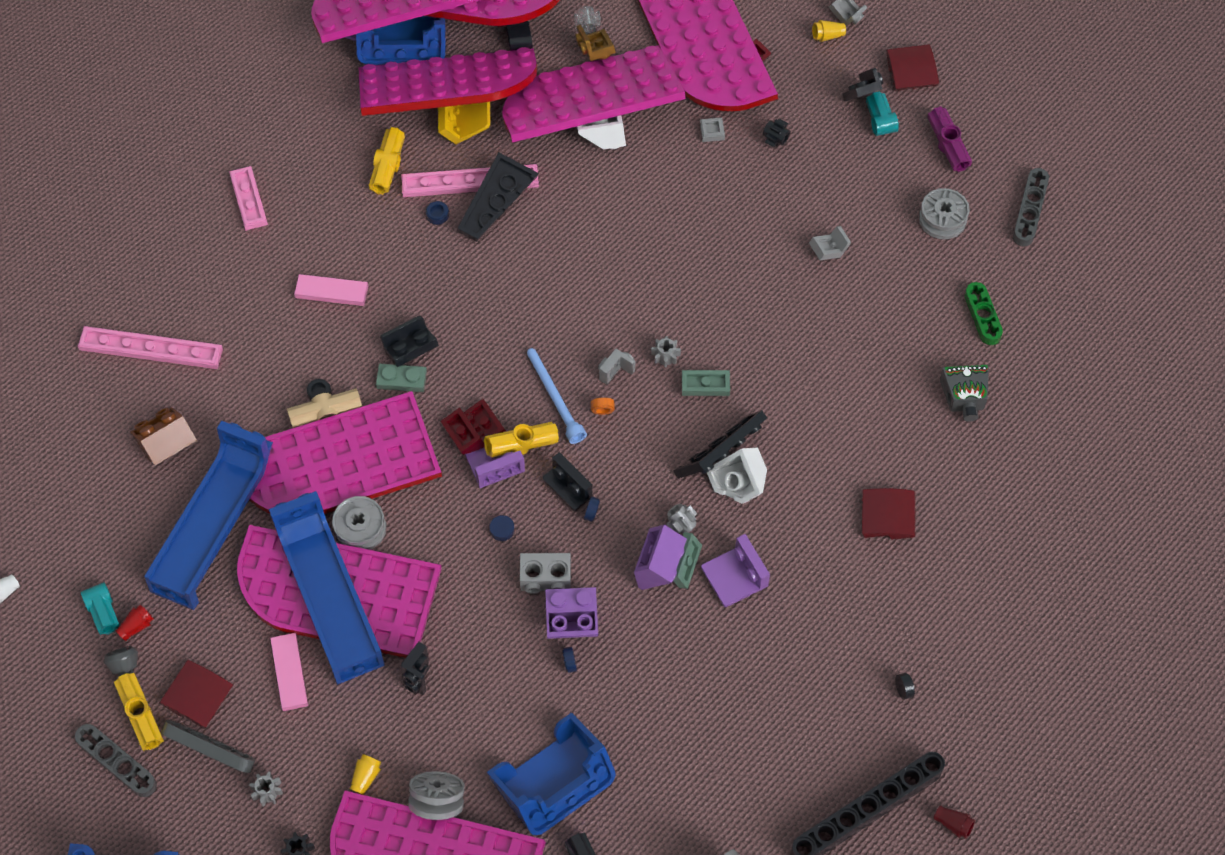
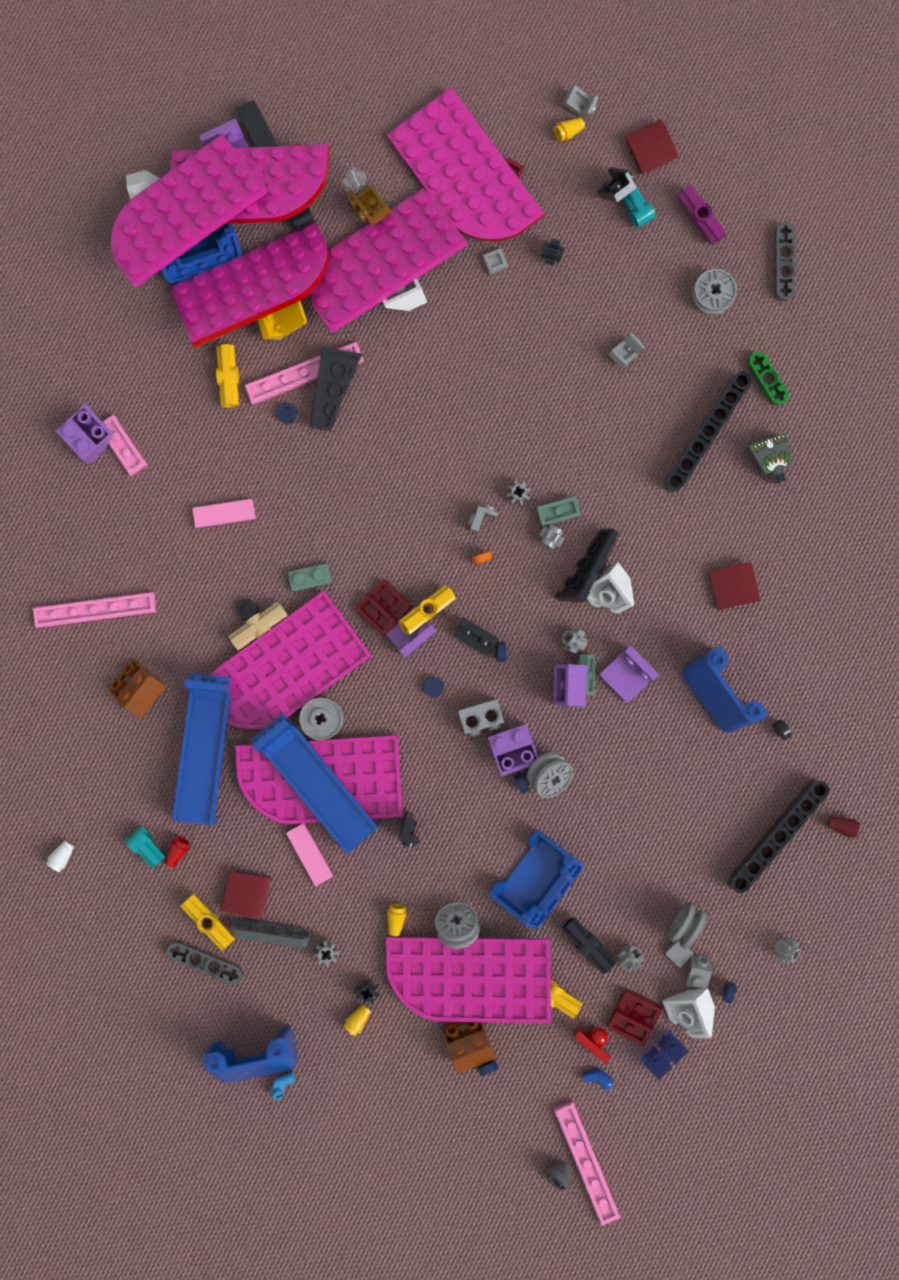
camera: 15 degrees left, 25 degrees up
(122, 660) = (179, 885): dark grey cone -> none
(214, 174) = (85, 434): none -> medium lavender slope
(408, 341) = (306, 545): black bracket -> none
(574, 431) = (464, 584): light blue piece -> none
(607, 666) = (550, 775): none -> light grey wheel
(689, 404) = (551, 537): none -> light grey gear
(842, 641) = (715, 694): none -> blue windscreen
(894, 355) = (711, 423): none -> black beam

